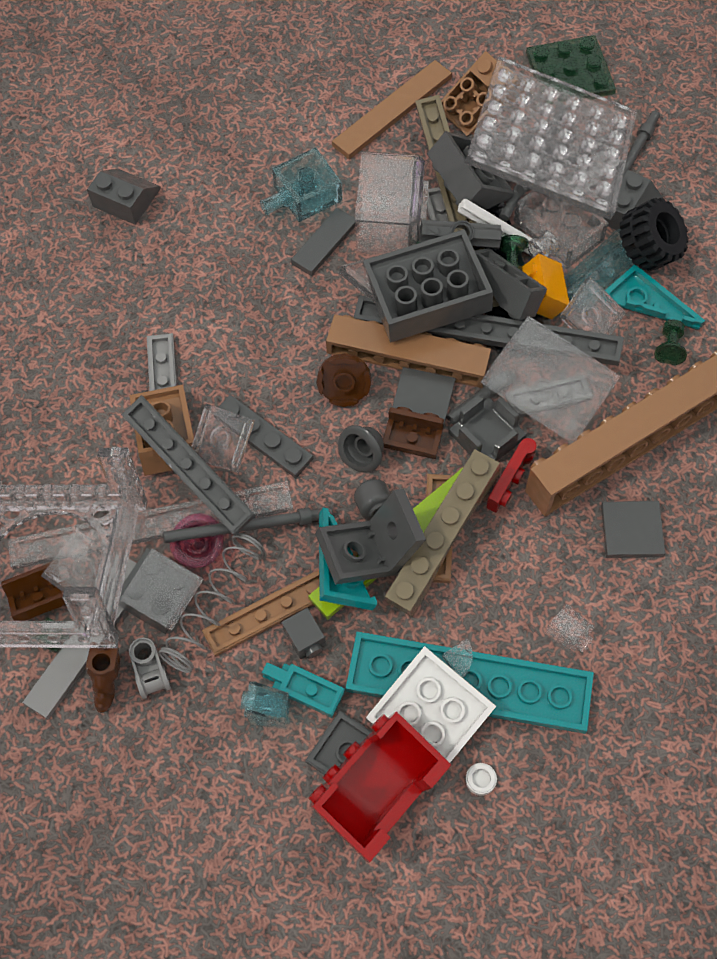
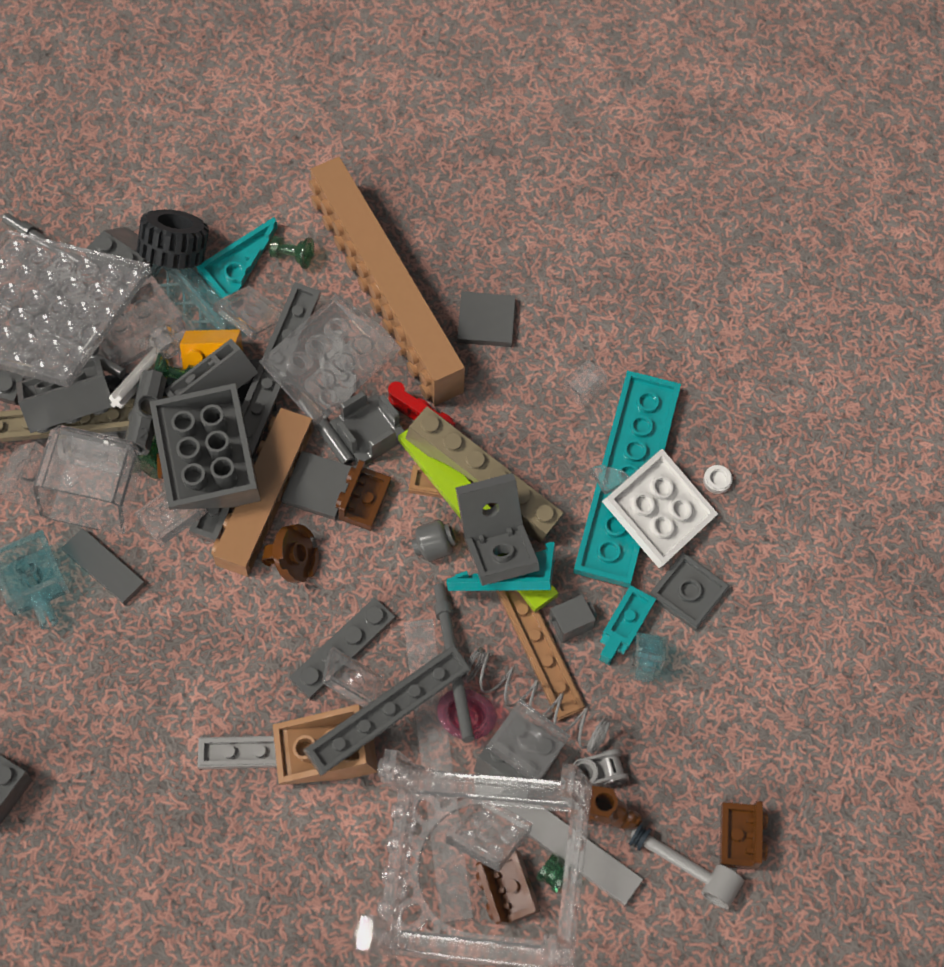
camera: 90 degrees left, 0 degrees up
(37, 791) = (720, 885): none -> light grey piece
(87, 812) = (743, 835): none -> reddish brown bracket
(361, 448) = (376, 545): dark grey hat -> none
(377, 783) = (726, 560): red cylinder -> none

